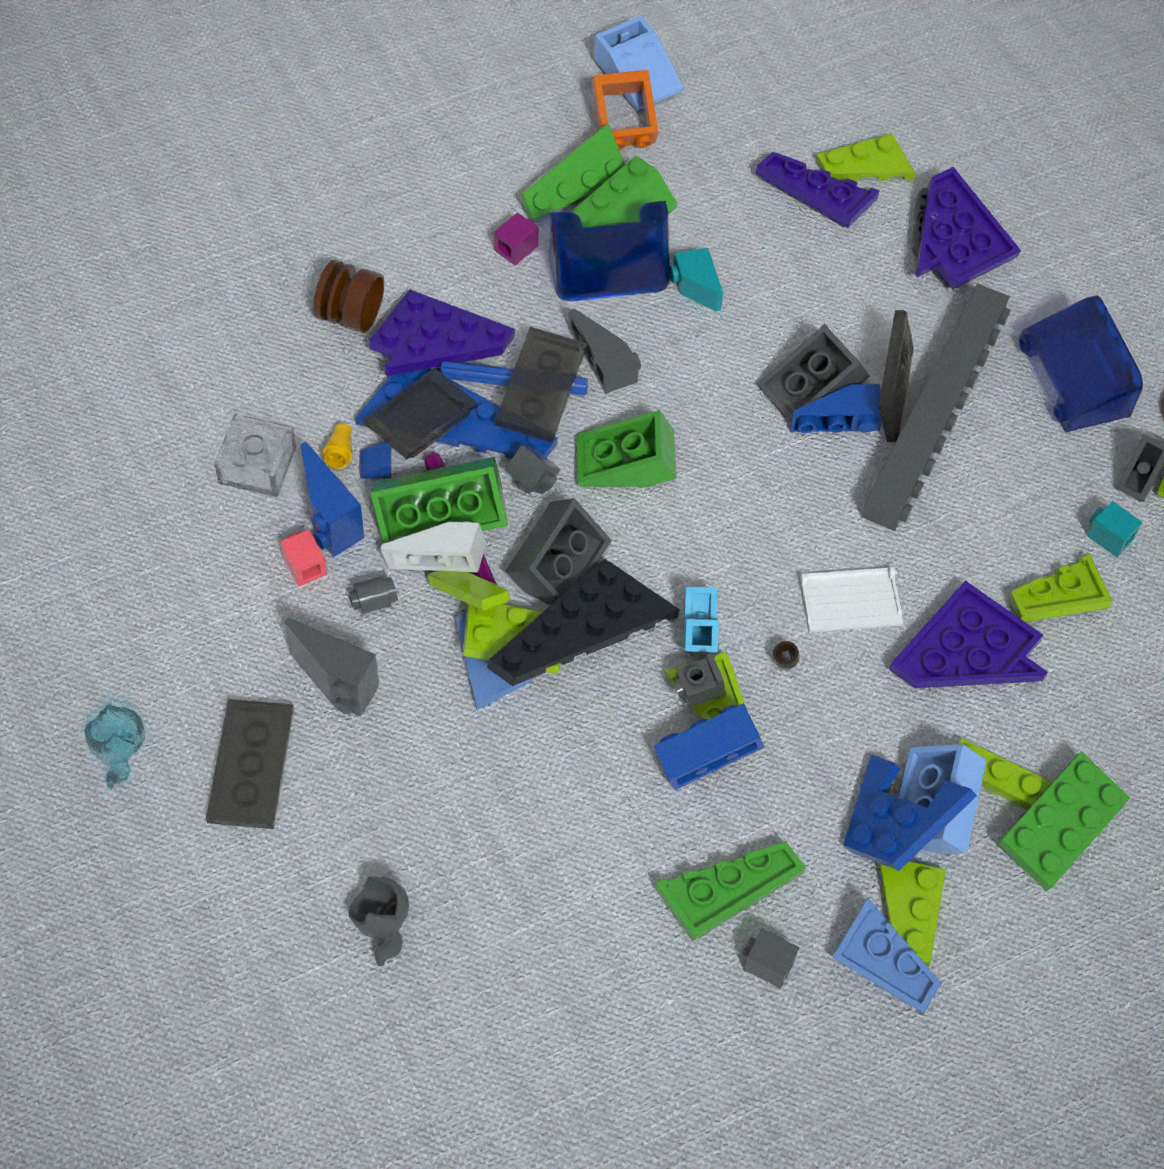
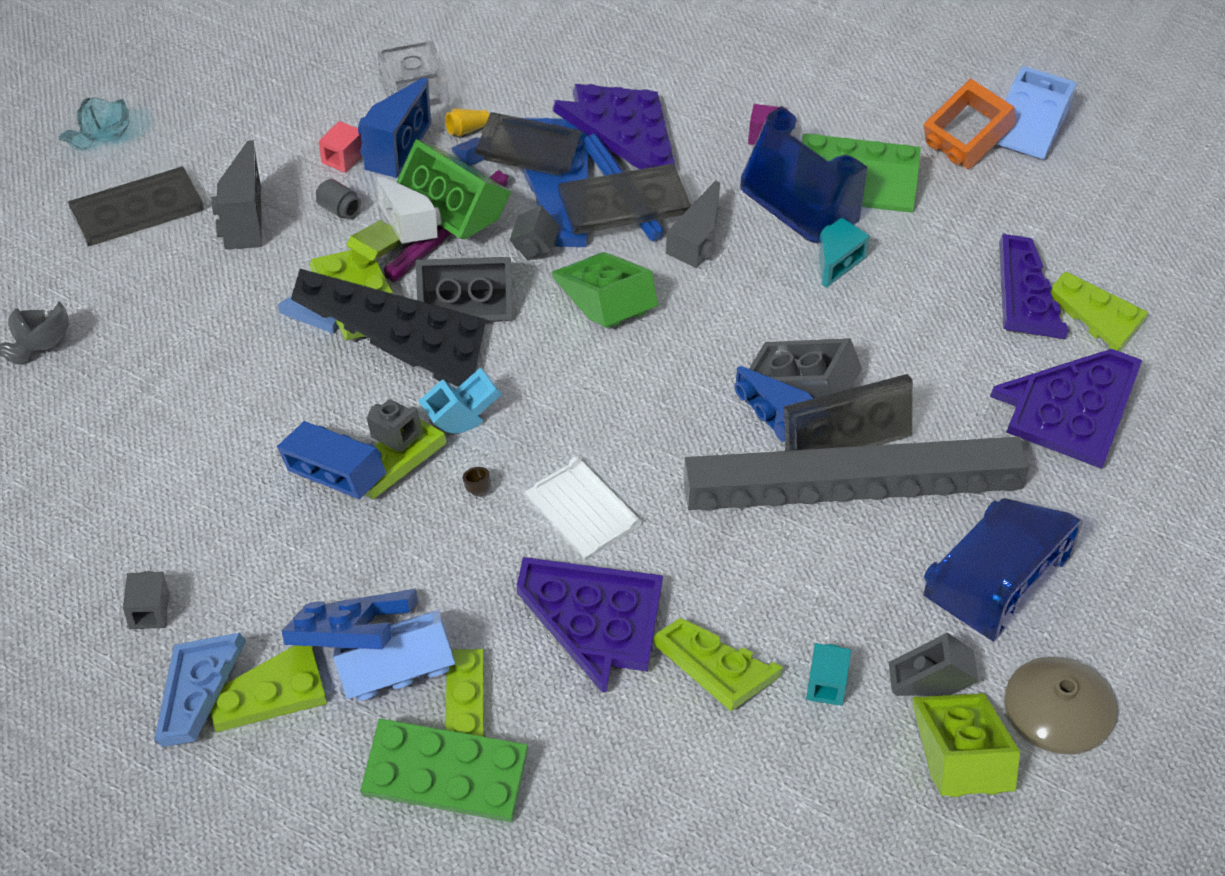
camera: 60 degrees right, 10 degrees down
(348, 296) = (607, 52): reddish brown wheel -> none
(574, 175) = (868, 123): bright green wing -> none
(718, 893) = (195, 538): bright green wing -> none

